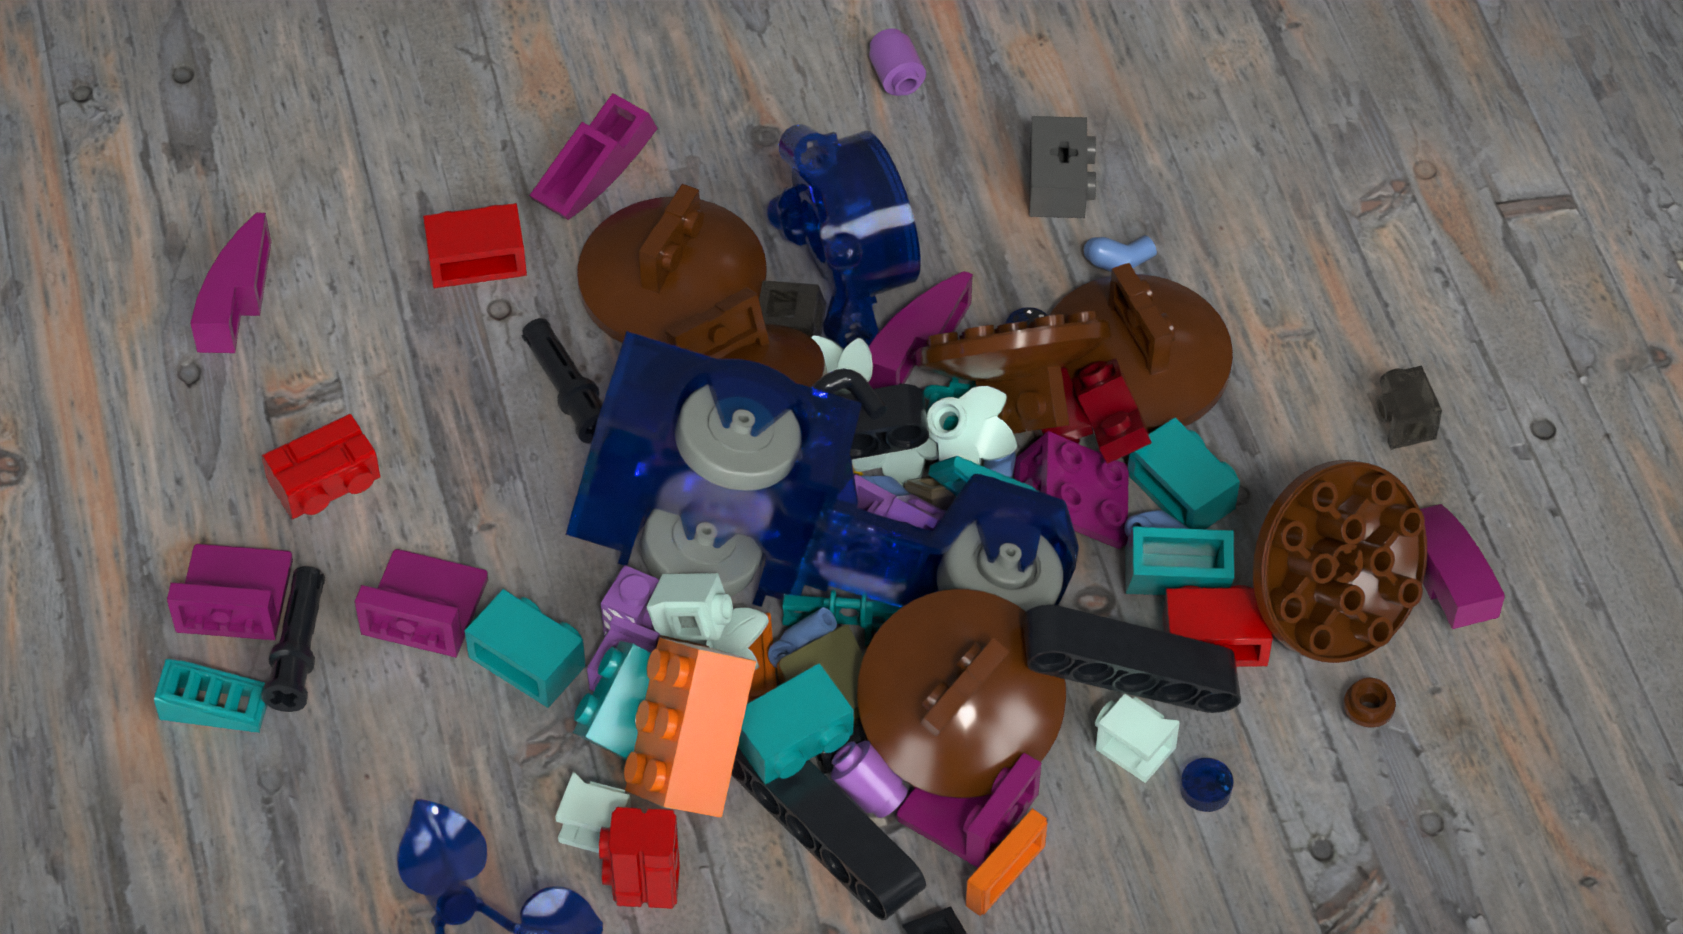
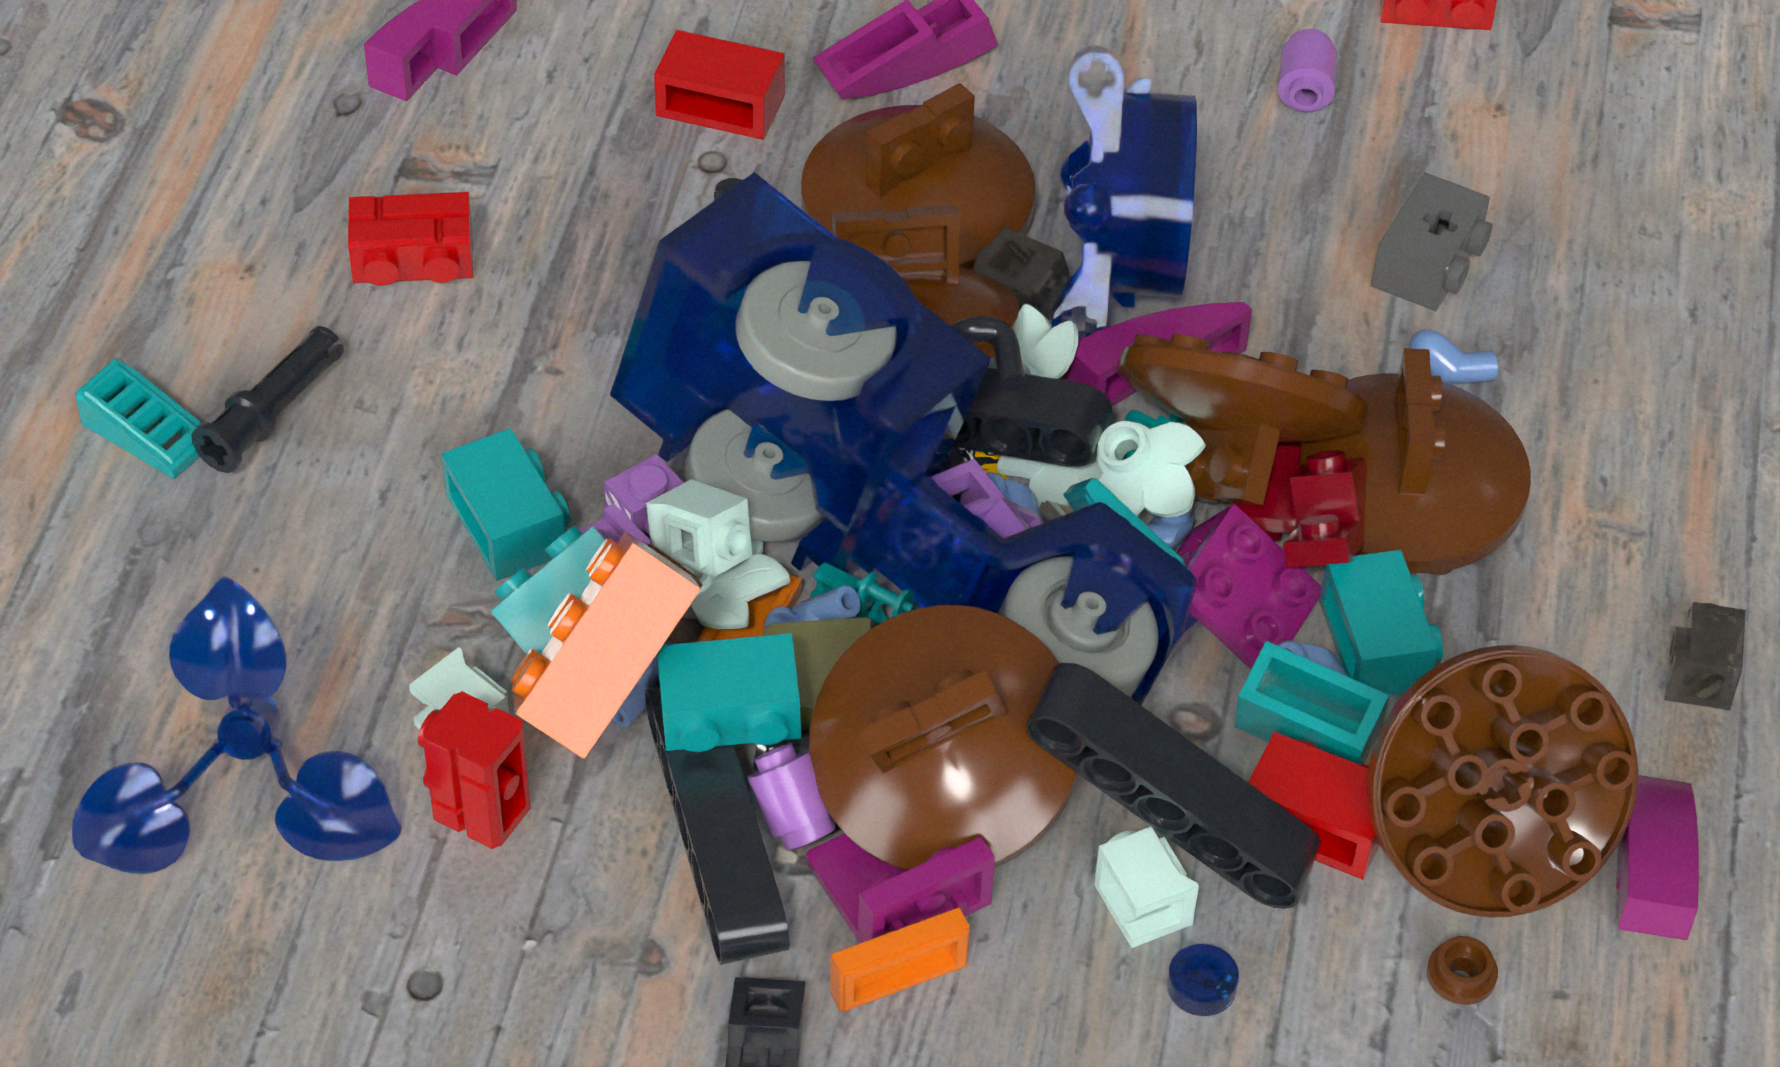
camera: 25 degrees right, 5 degrees down
(231, 592) = (233, 325): magenta bracket -> none
(421, 602) = (421, 411): magenta bracket -> none

